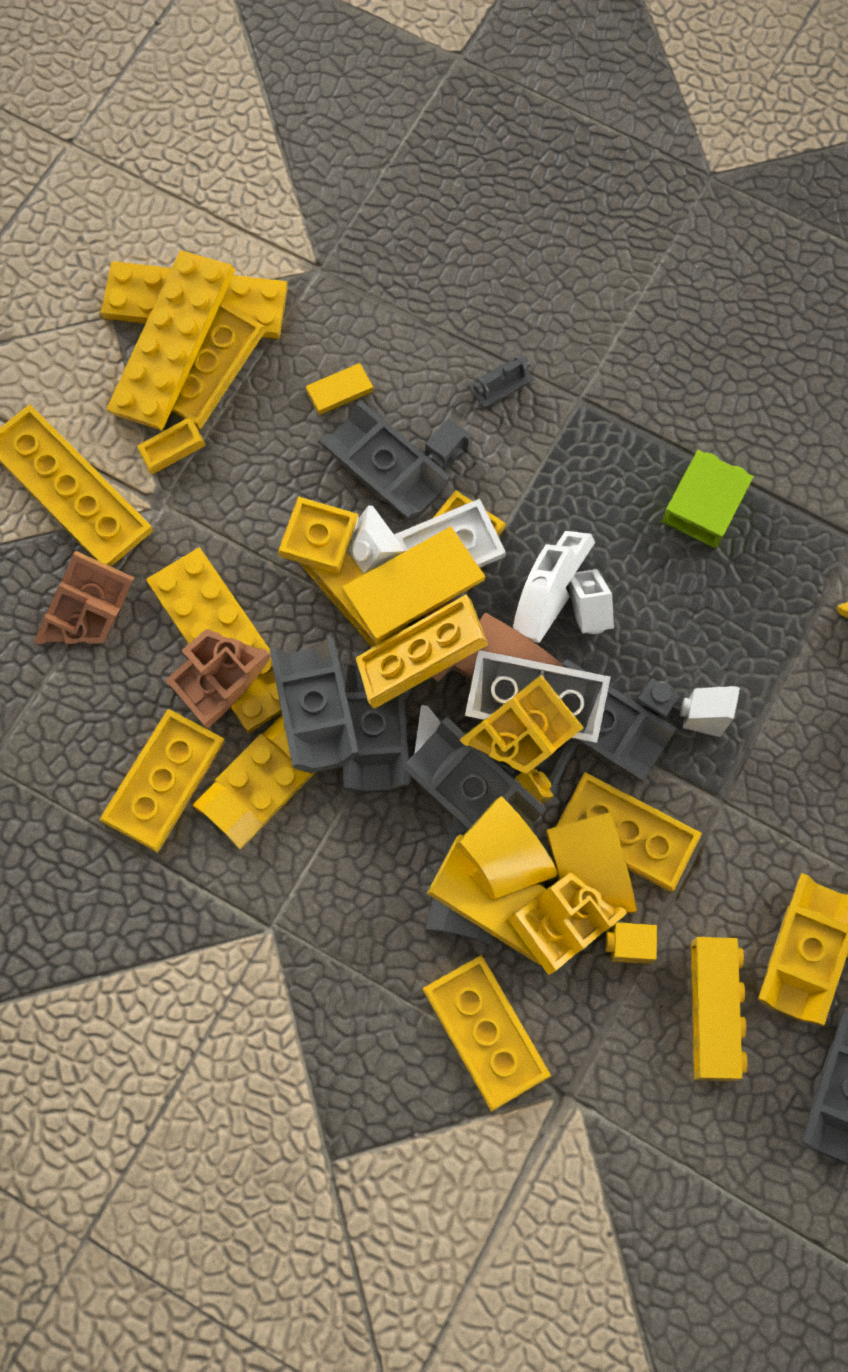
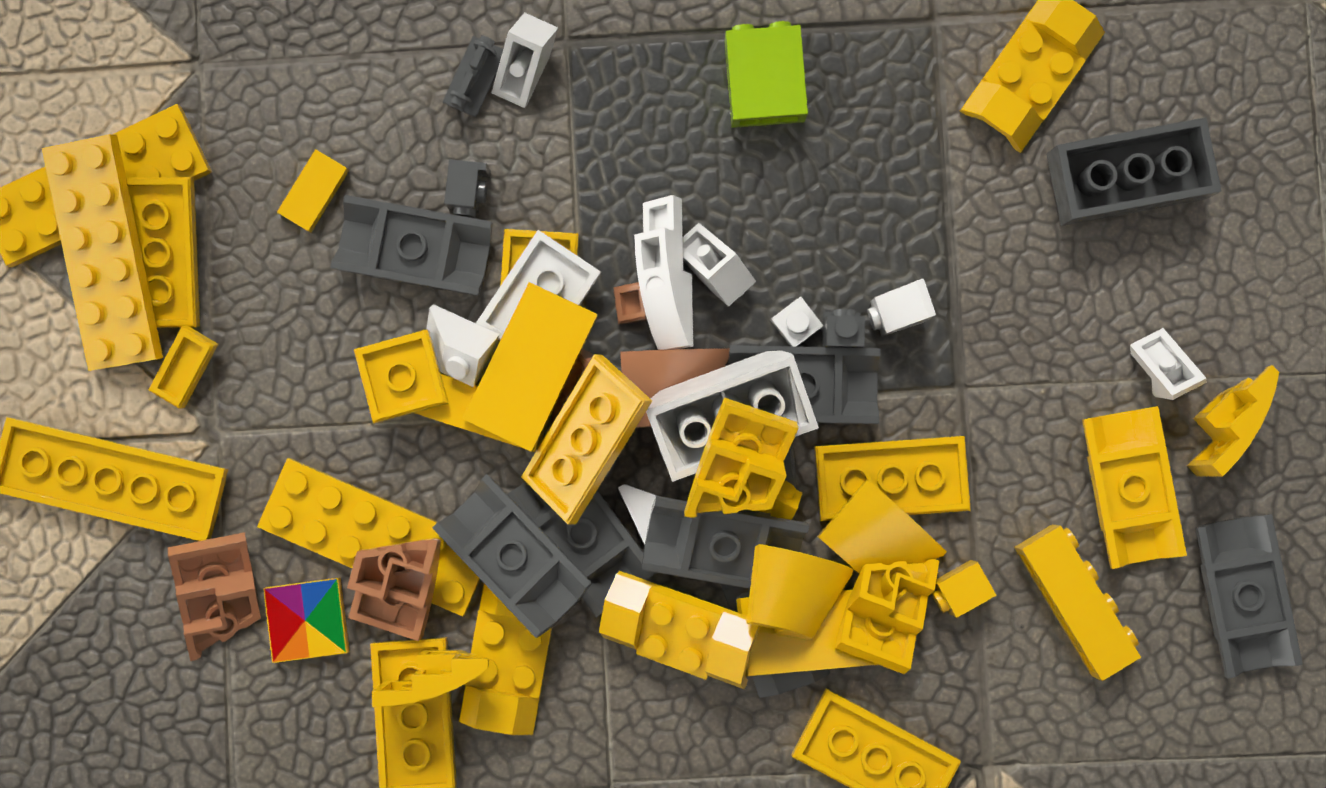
camera: 25 degrees left, 15 degrees up
(134, 665) = (306, 620): none -> tile
(193, 747) = (436, 674): none -> yellow slope
(398, 831) = (678, 629): none -> yellow piece
(510, 593) = (629, 304): none -> nougat slope
(542, 389) = (524, 59): none -> white slope
(626, 677) = (796, 322): none -> white plate

